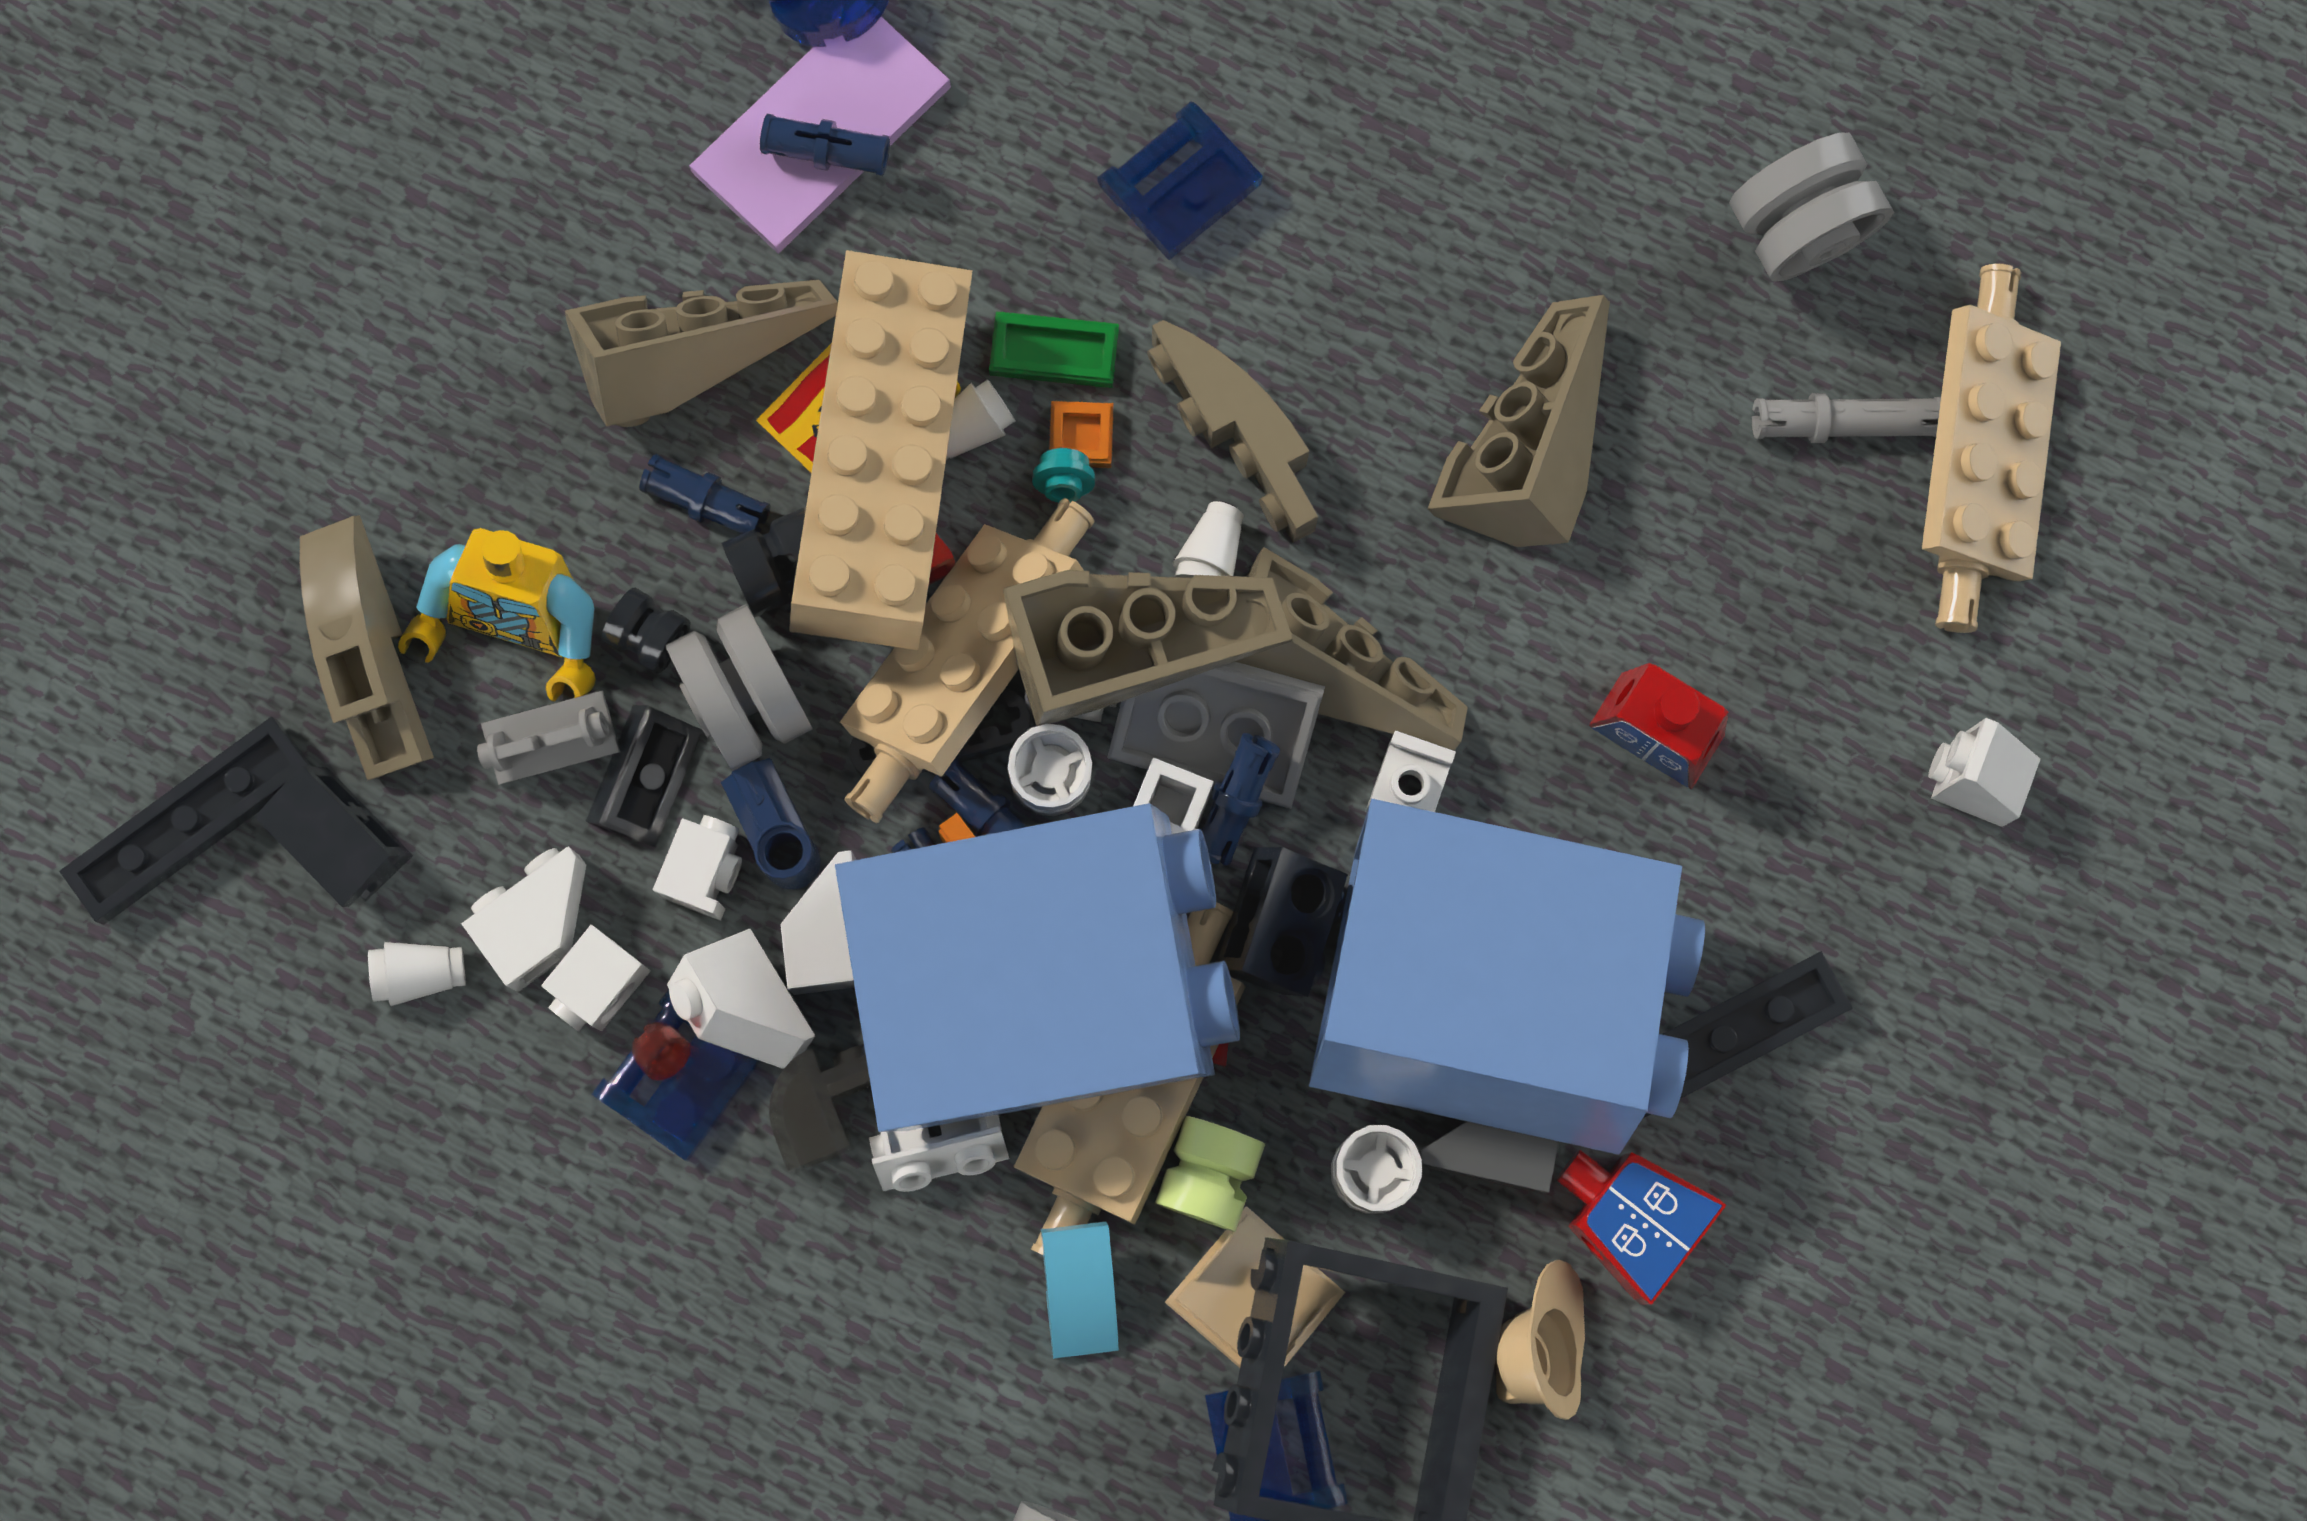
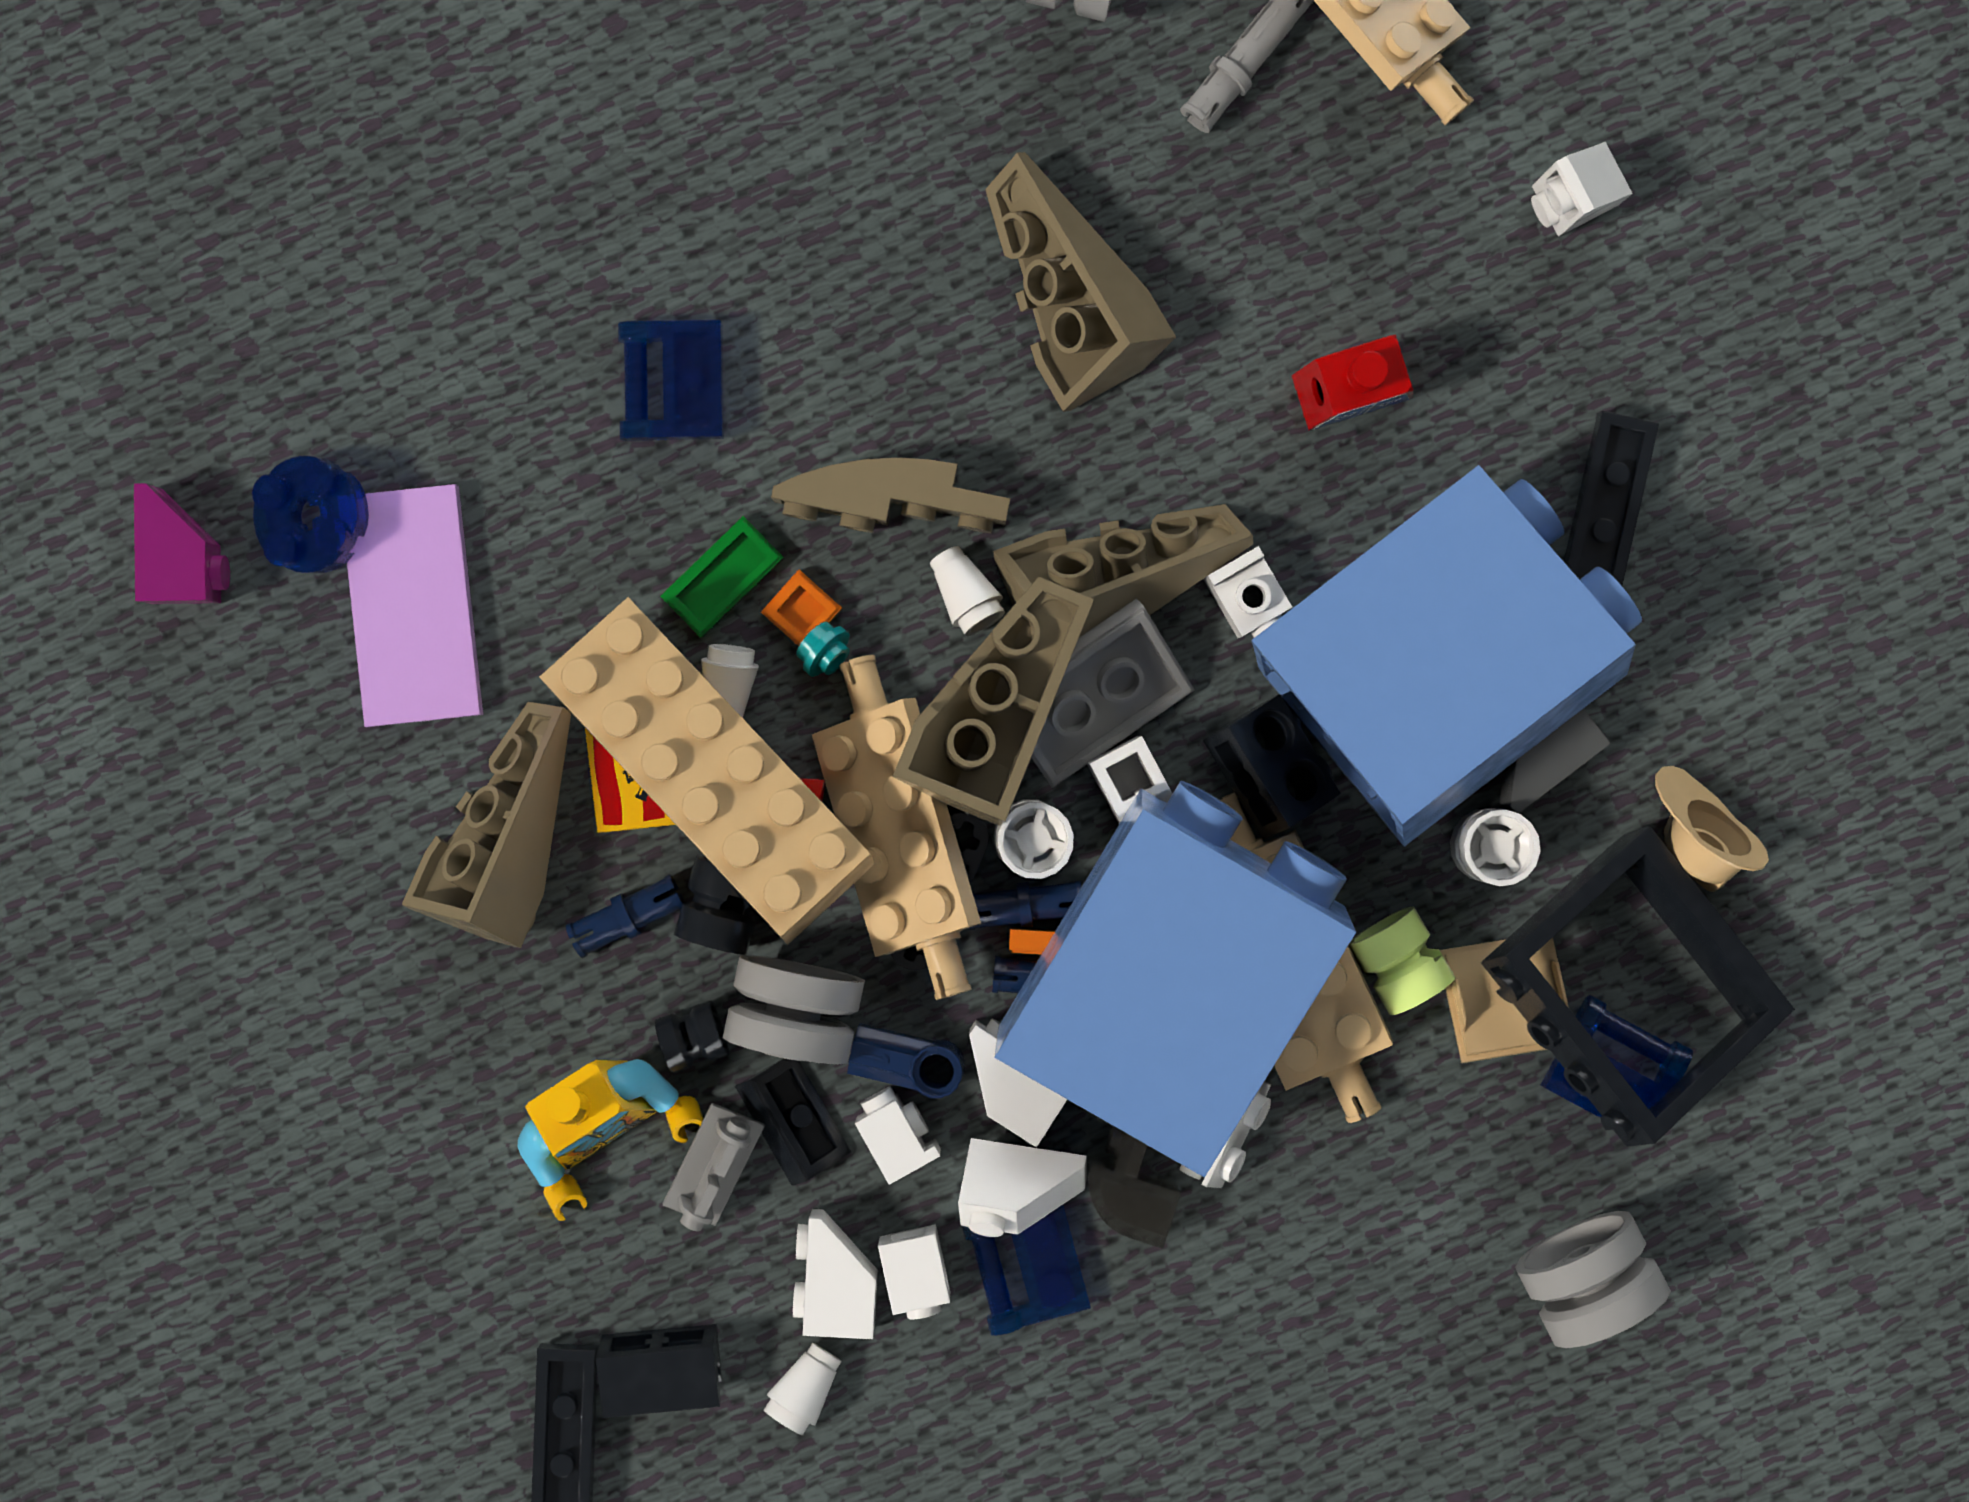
camera: 50 degrees left, 10 degrees up
(353, 648) = (533, 1254): dark tan slope -> none
(660, 1064) = (1005, 1267): clear red hinge -> none
(824, 144) = (406, 642): dark blue pin -> none
(1080, 1289) = (1403, 1112): medium azure slope -> none
(1238, 796) = (1160, 725): dark blue pin -> none
(1638, 1219) = (1675, 695): torso -> none

